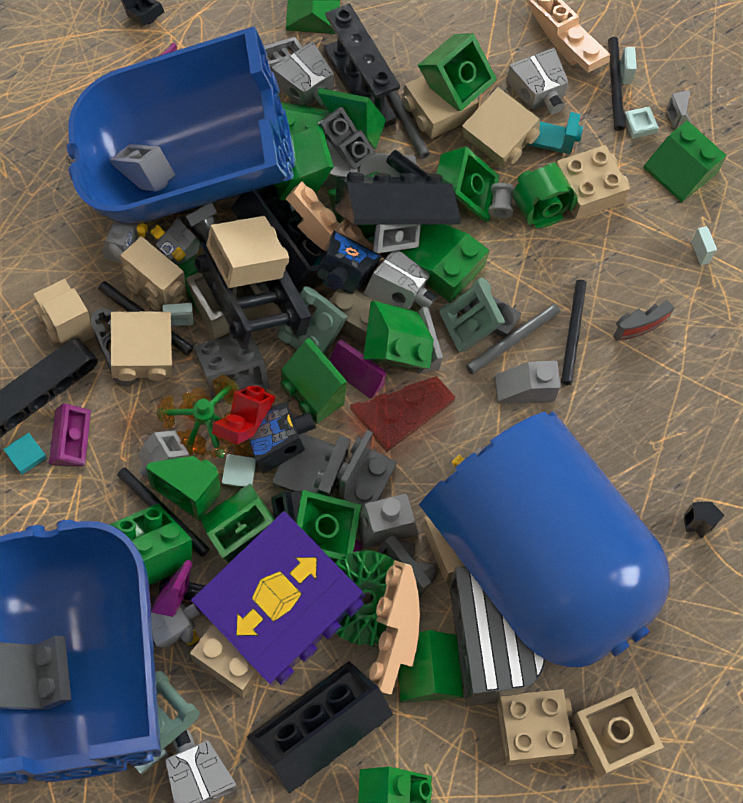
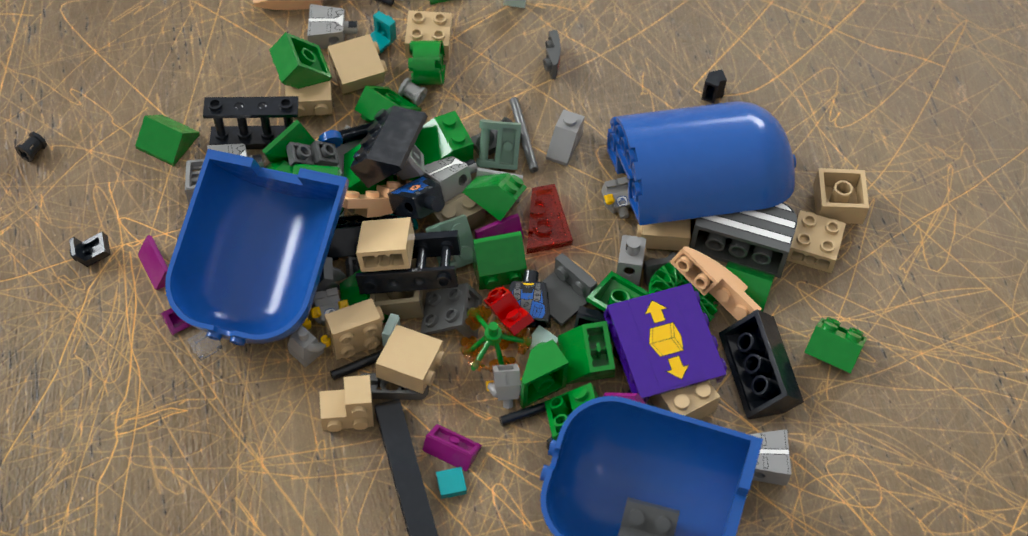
camera: 60 degrees left, 10 degrees down
(144, 166) = (250, 298): light grey slope -> none
(365, 474) = (586, 258): dark grey bracket -> none
(379, 146) = (331, 136): none -> blue tile
(409, 125) = (307, 121): dark grey piece -> none
(573, 332) = (531, 94): black piece -> none

